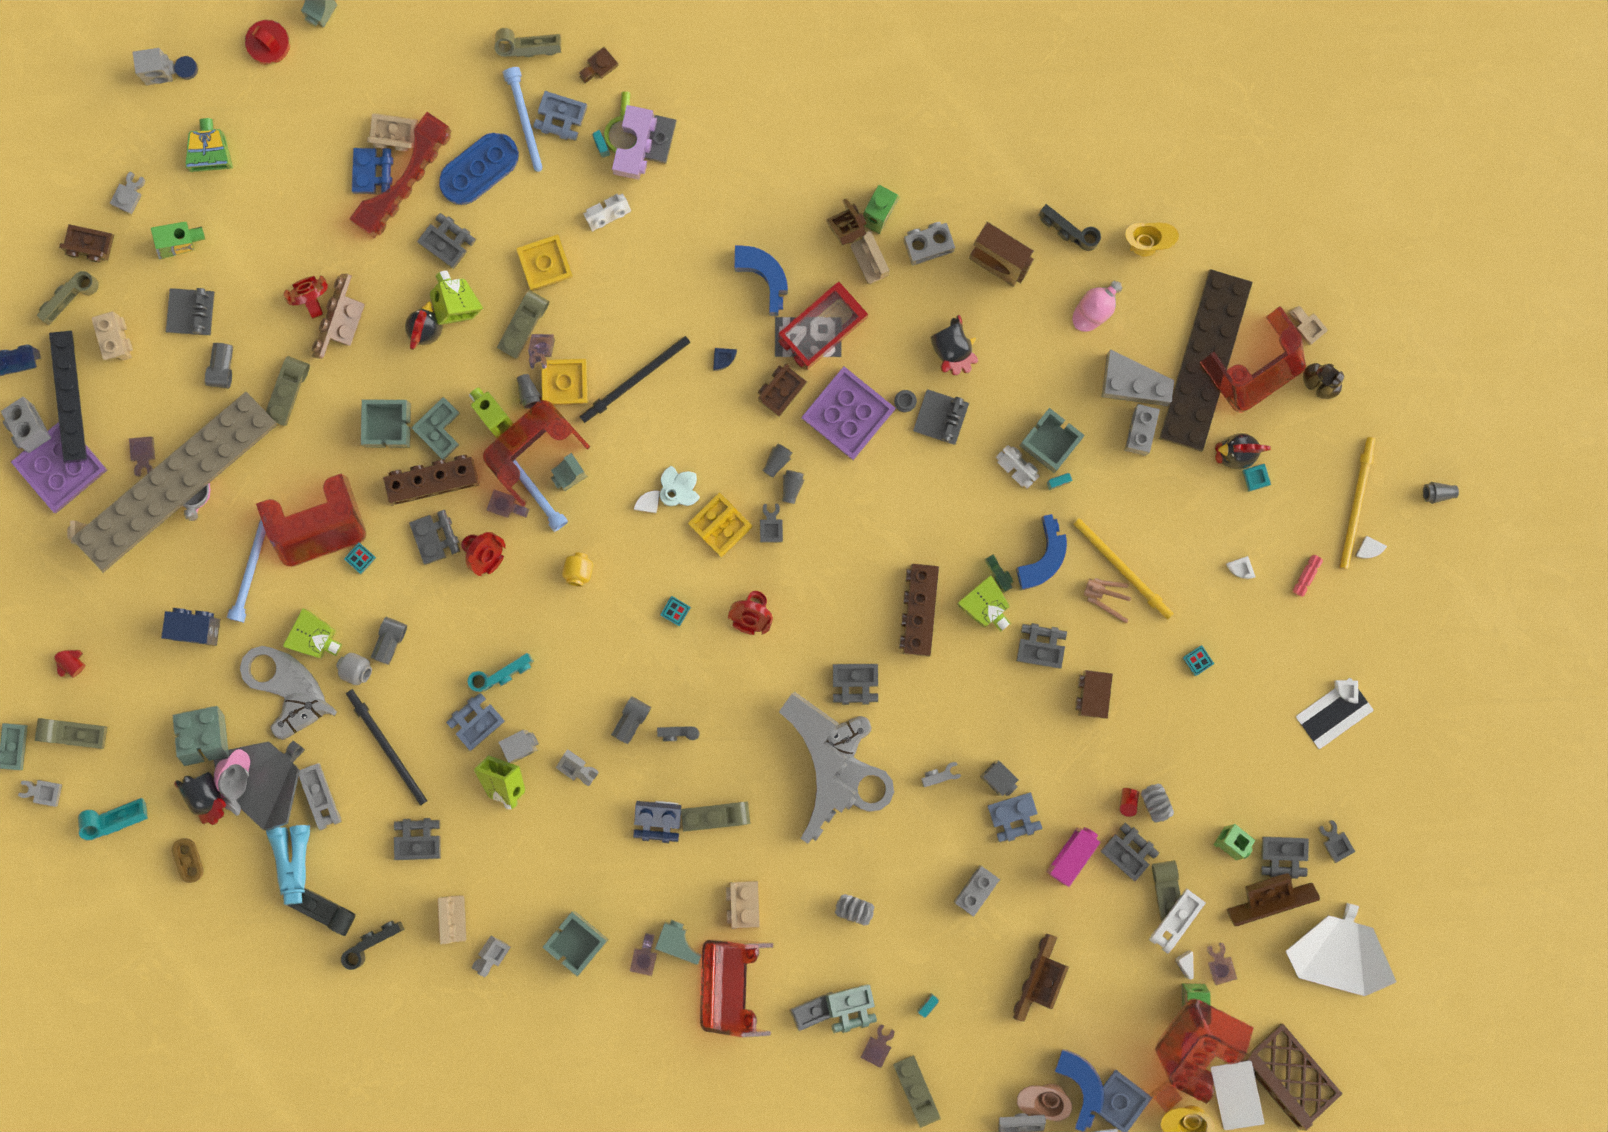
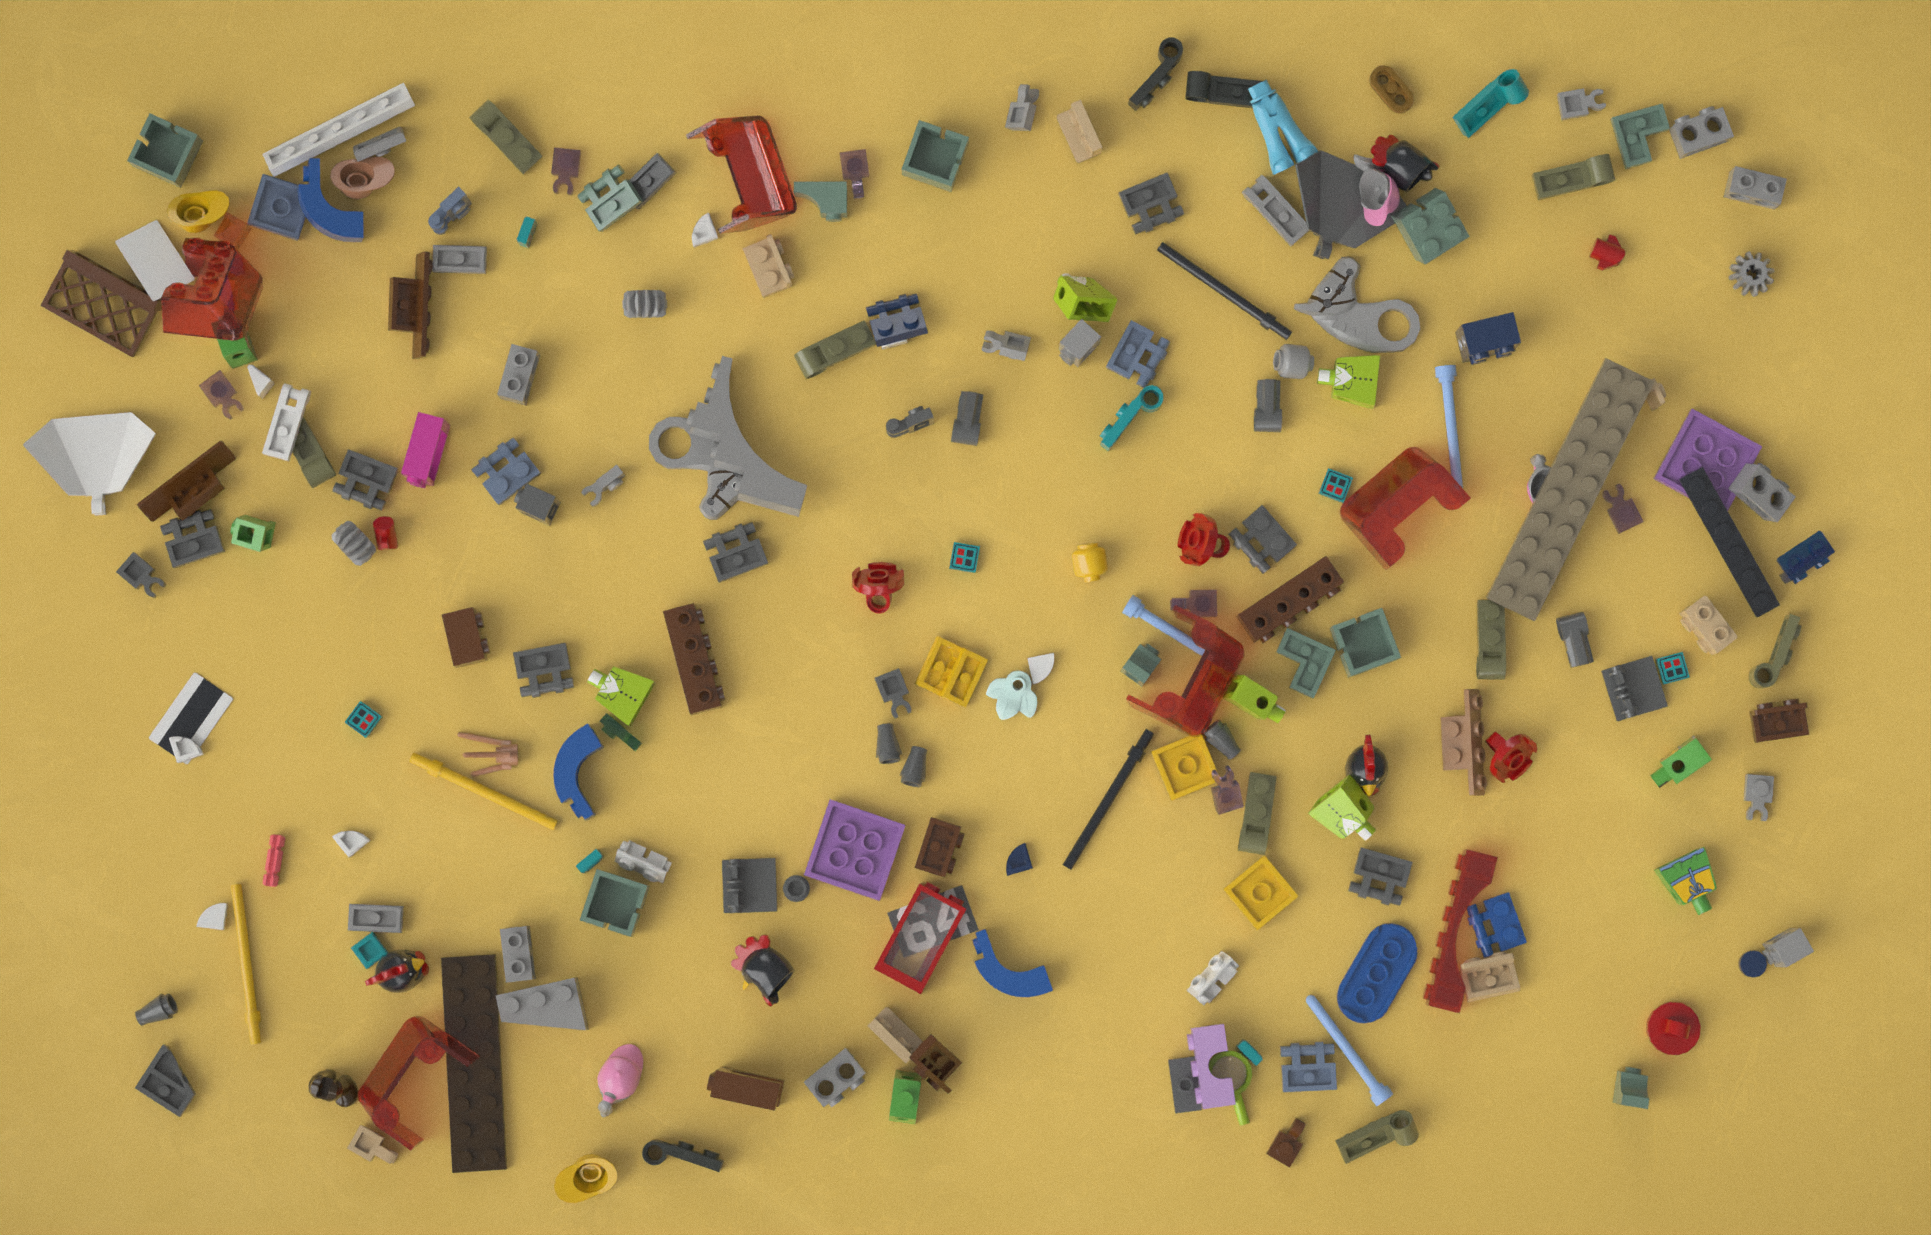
camera: 160 degrees right, 0 degrees up
(153, 316) = (1672, 668): none -> teal tile
(785, 953) = (703, 231): none -> white tile
(978, 1047) = (453, 207): none -> sand blue plate
(990, 1004) = (459, 259): none -> light grey plate
(1243, 500) = (375, 918): none -> light grey plate
(1451, 433) = (167, 1083): none -> dark grey wing

